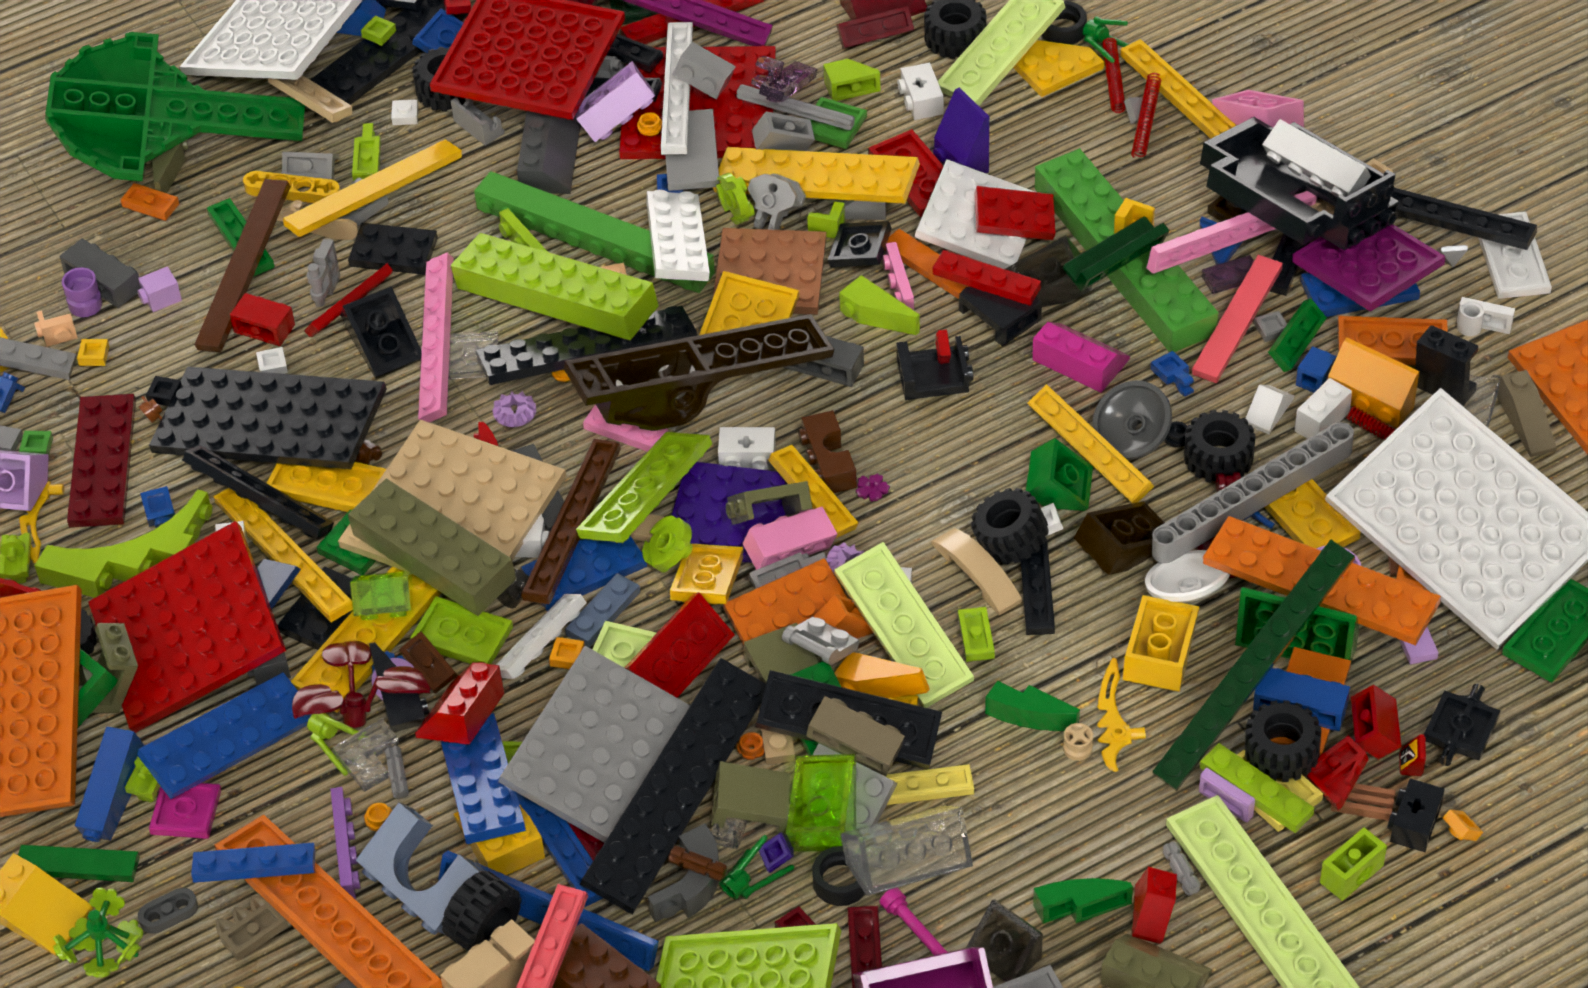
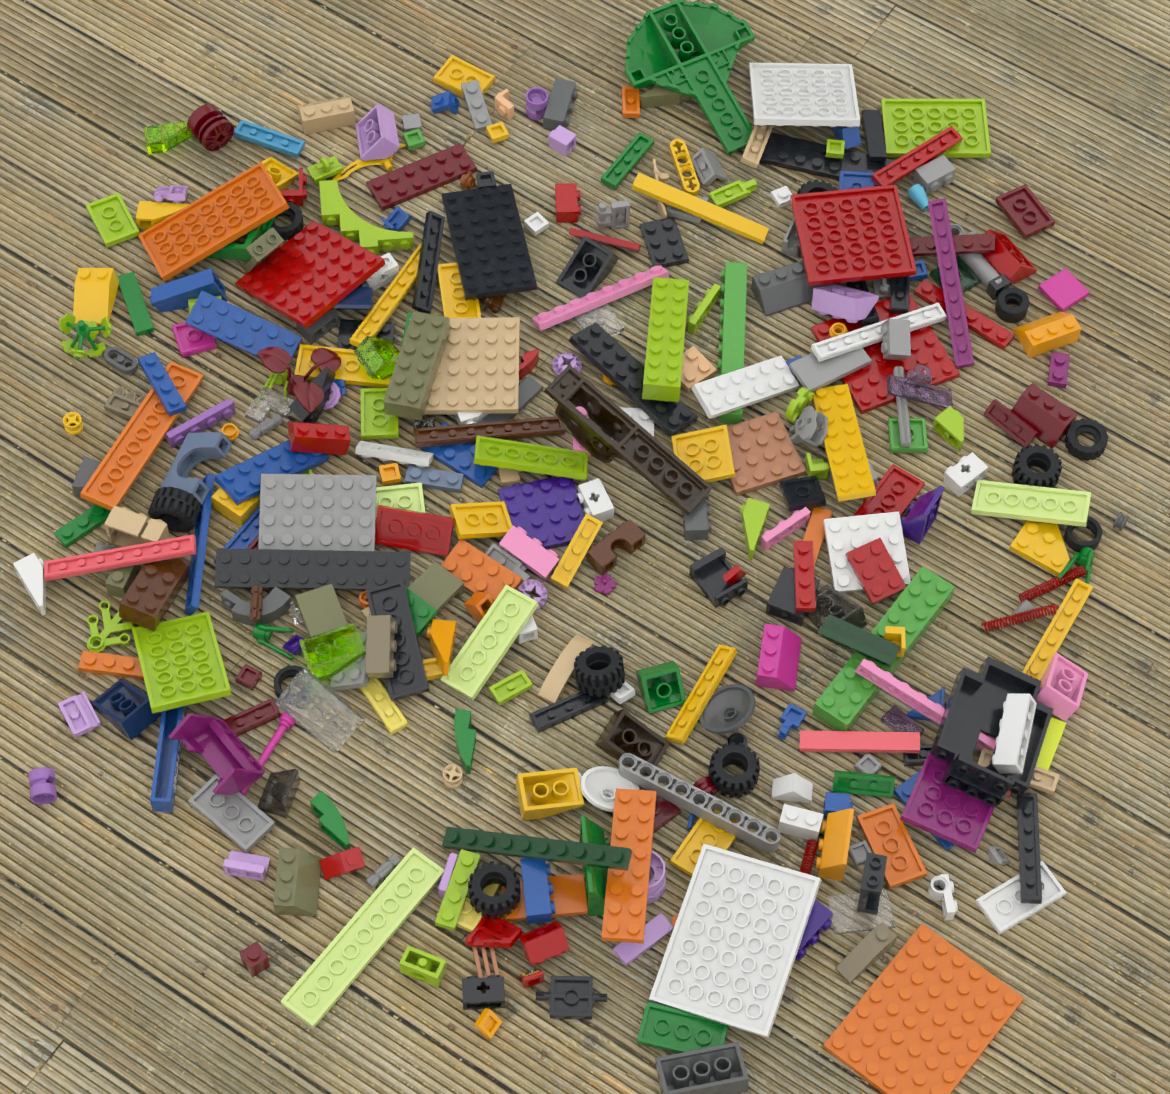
camera: 60 degrees right, 10 degrees up
(242, 264) = (602, 171): reddish brown tile -> none
(428, 661) = (347, 406): reddish brown plate -> none
(668, 544) = (491, 489): lime plate -> none
(783, 132) = (870, 409): light grey brick -> none
(794, 500) = (548, 525): olive panel -> none
(821, 639) = (455, 603): light grey plate -> none
(1118, 731) = (473, 798): yellow piece -> none

